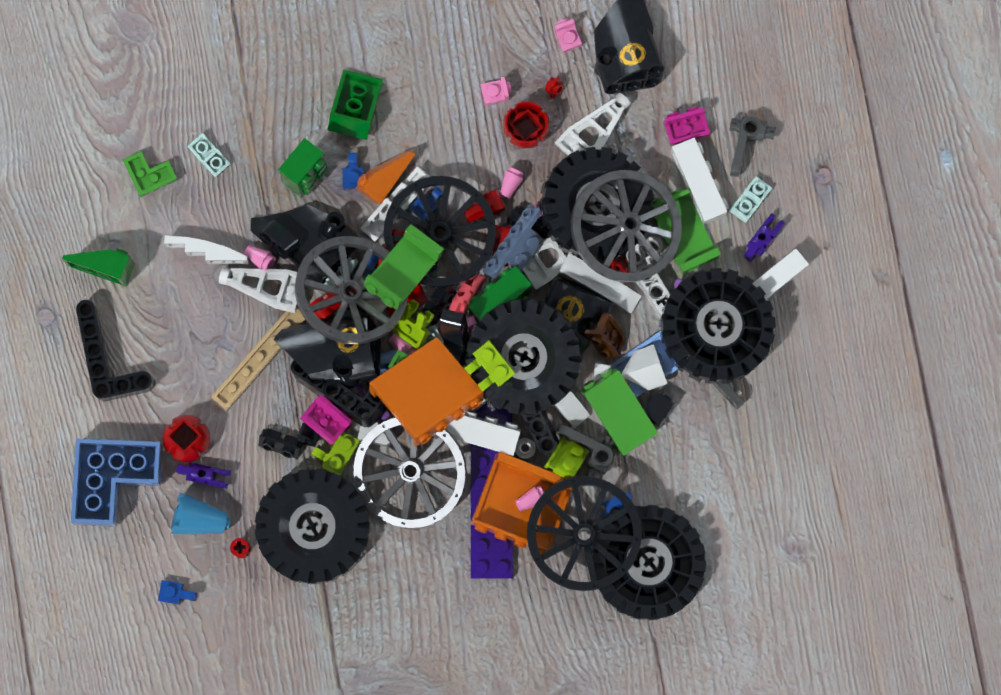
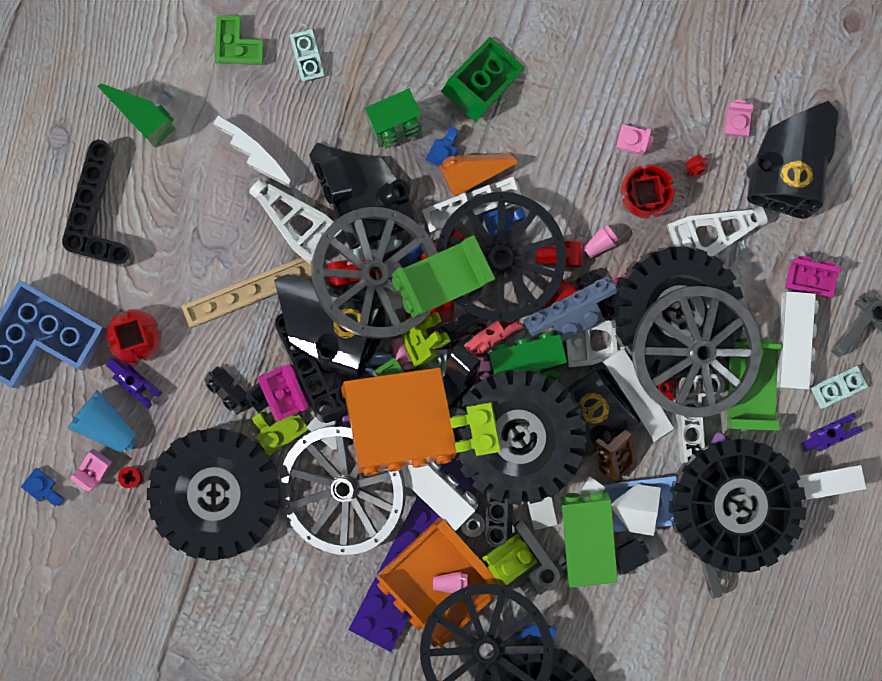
camera: 25 degrees right, 5 degrees up
(207, 558) = (91, 470): none -> bright pink bracket
(261, 258) = (304, 188): bright pink cone -> none

